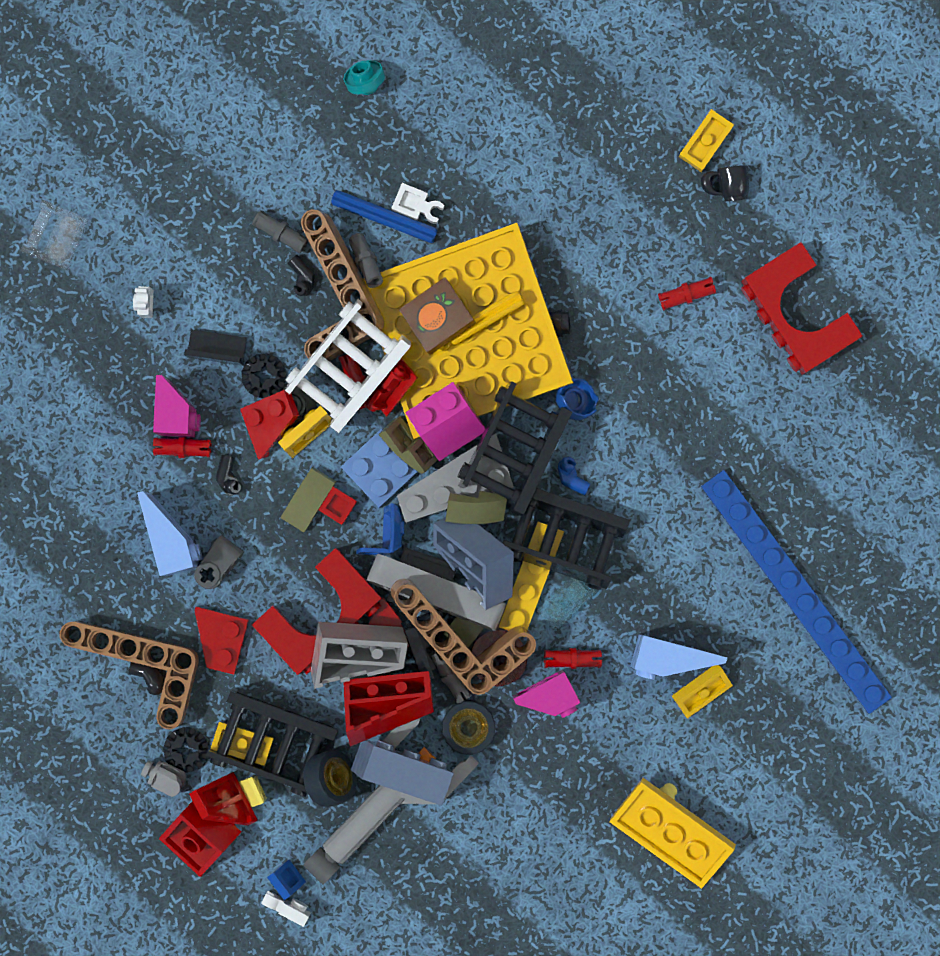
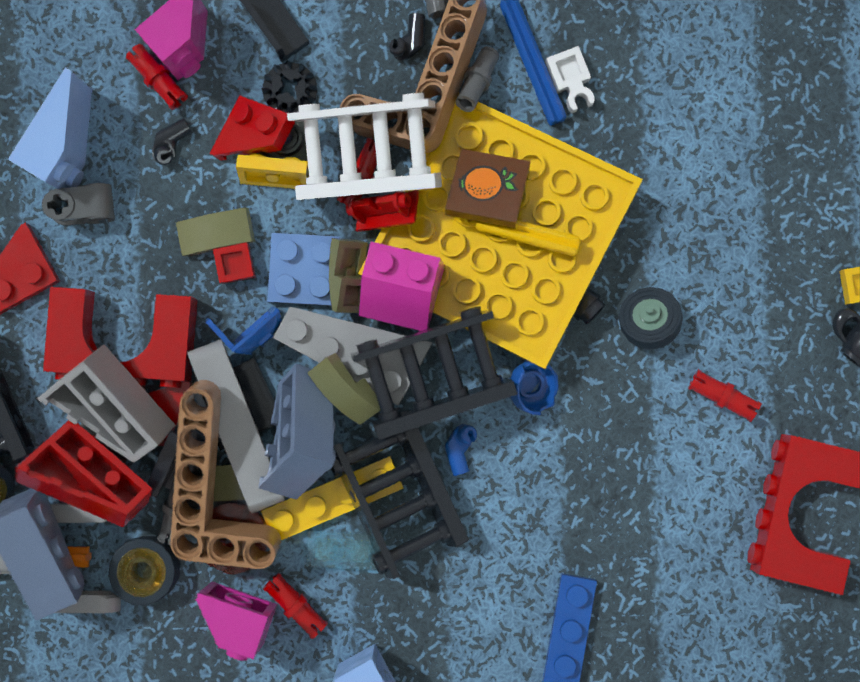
camera: 50 degrees right, 0 degrees up
(601, 293) = (650, 318): none -> black wheel

